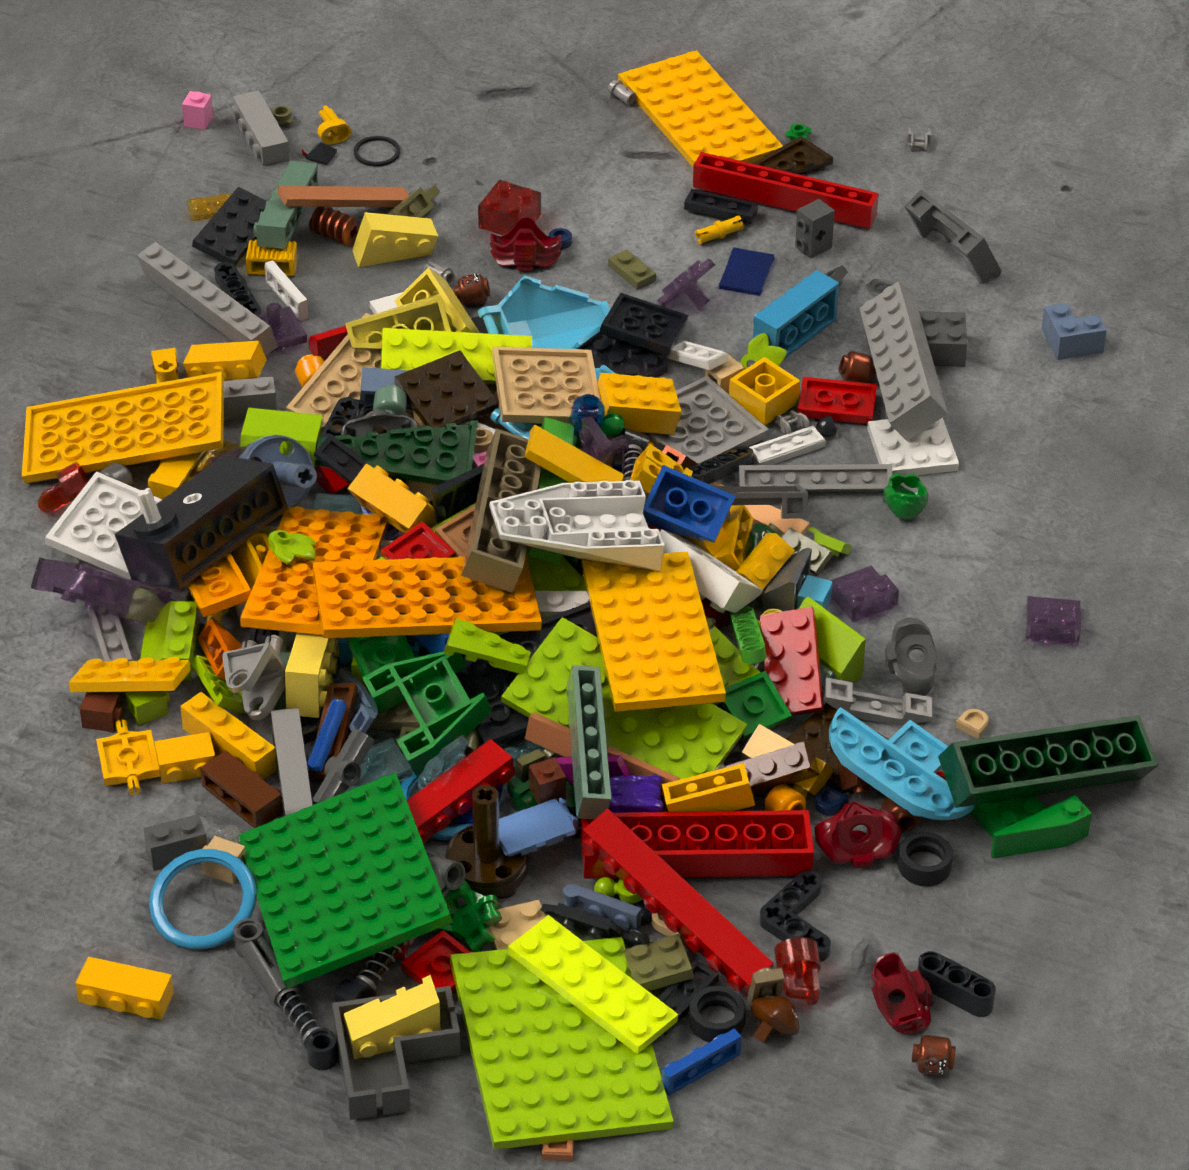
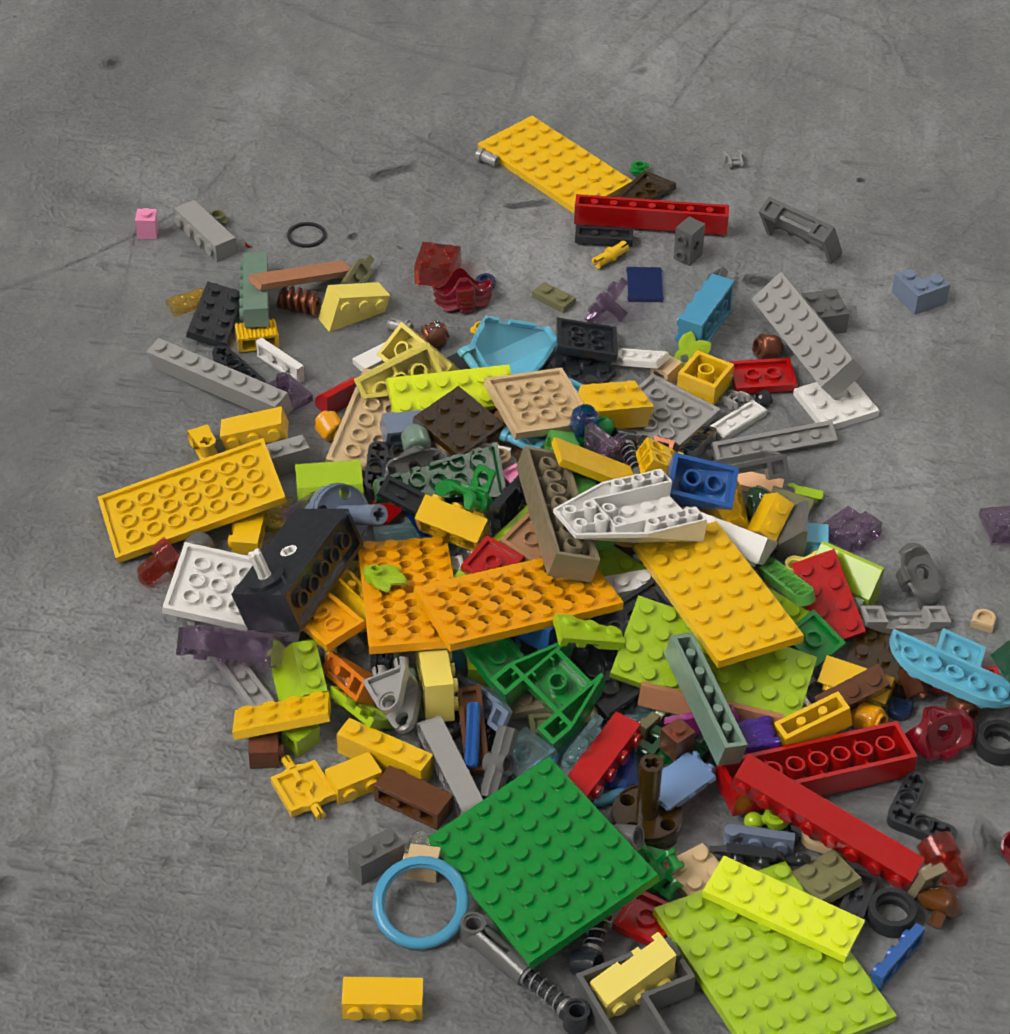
camera: 15 degrees left, 0 degrees up
(321, 153) = (262, 243): black slope -> none
(337, 128) = (265, 222): yellow piece -> none
(419, 475) = (472, 494): none -> green piece
(902, 501) = (852, 450): green hair -> none

